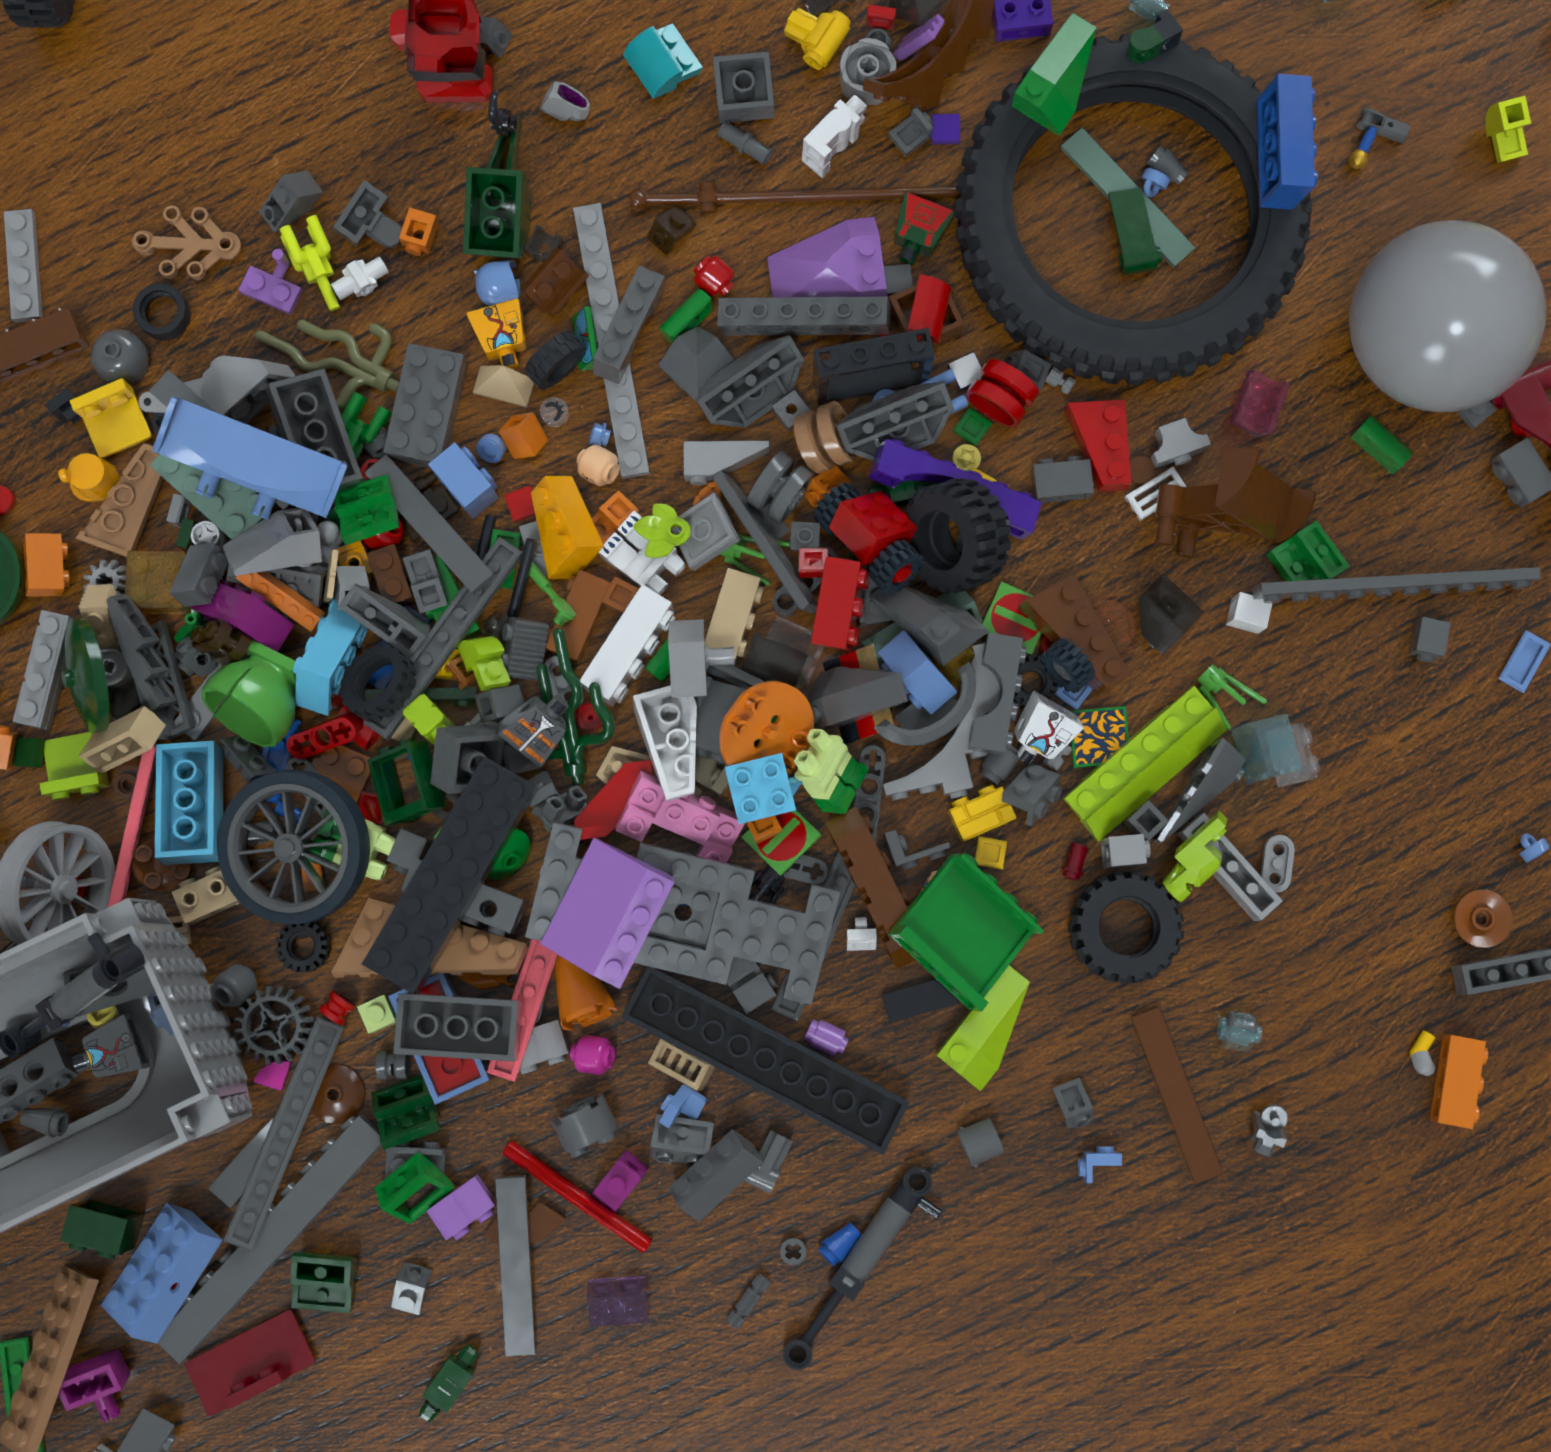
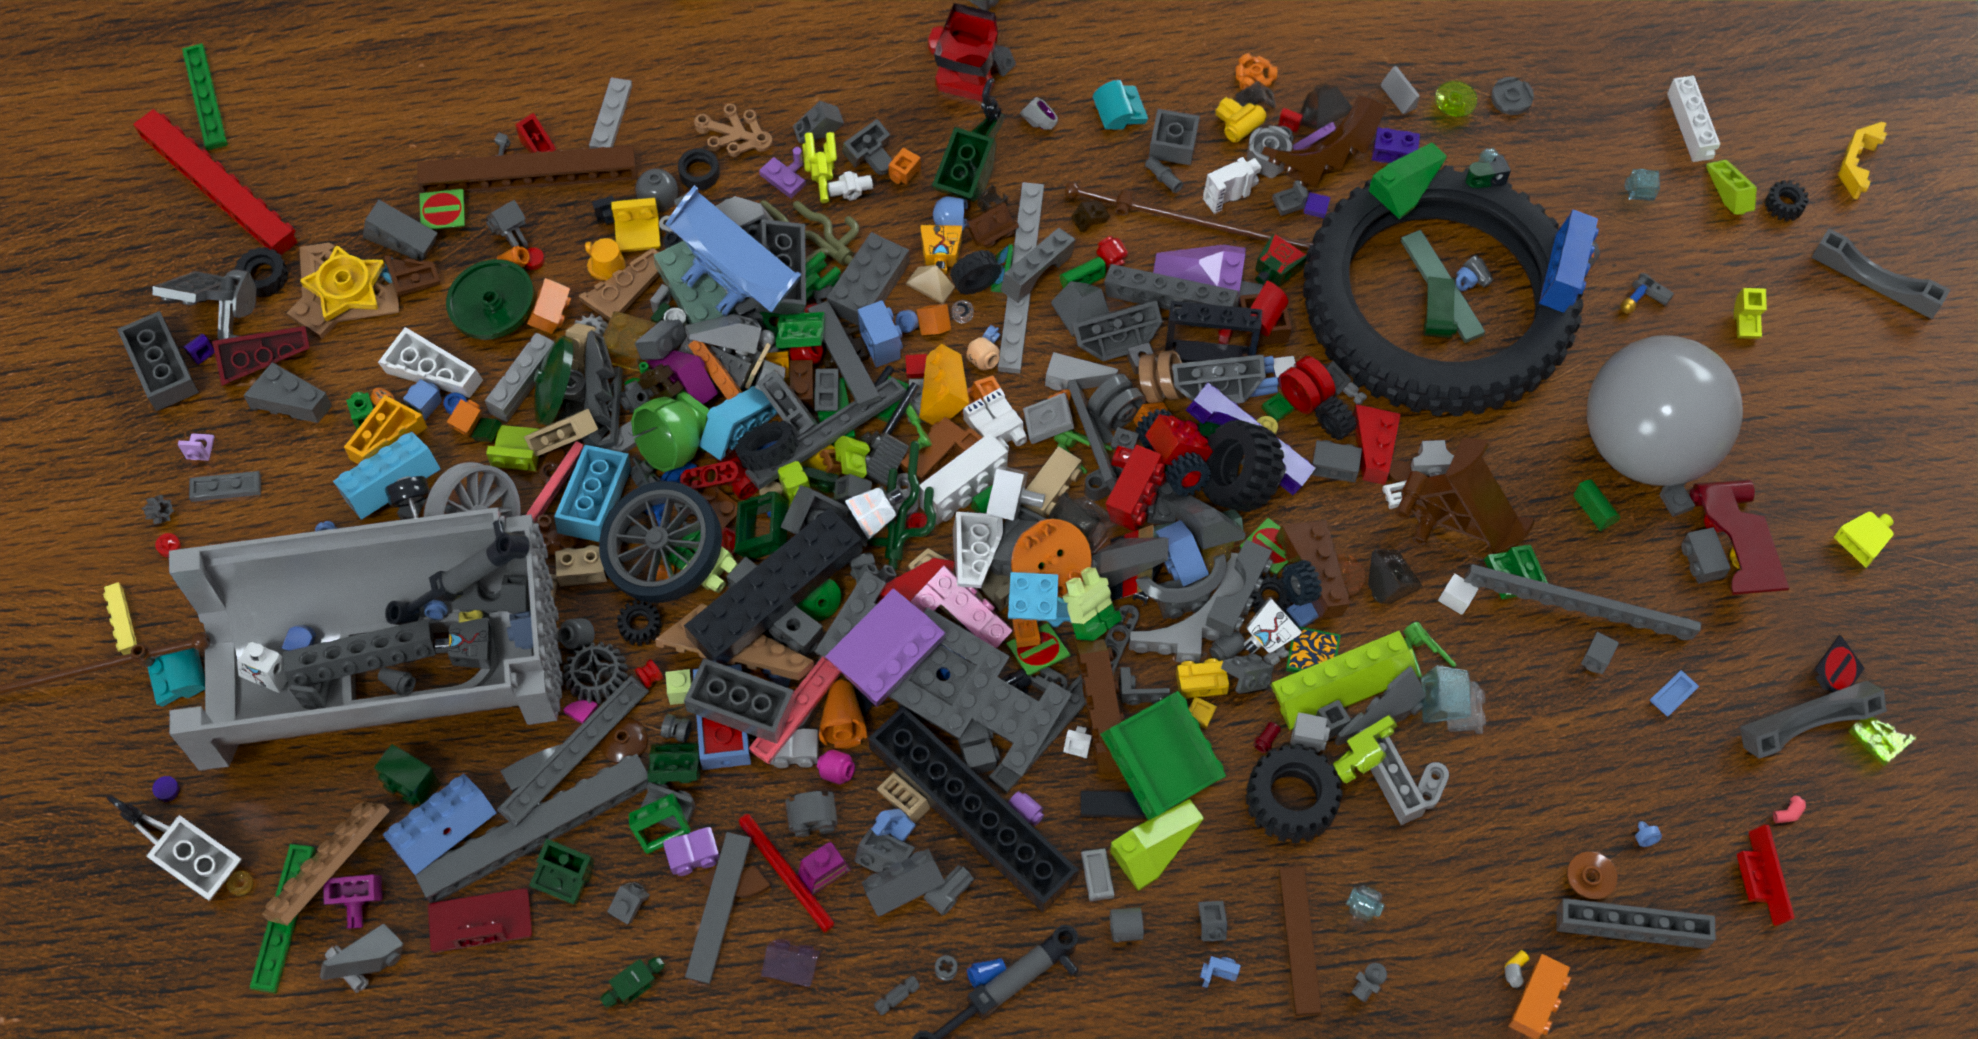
camera: 15 degrees right, 20 degrees down
(658, 531) = (1015, 405): lime plate -> none
(929, 1087) = (1097, 874): none -> light grey tile
(1047, 426) = (1335, 418): none -> black tyre
(1259, 404) = (1506, 449): clear pink bracket -> none

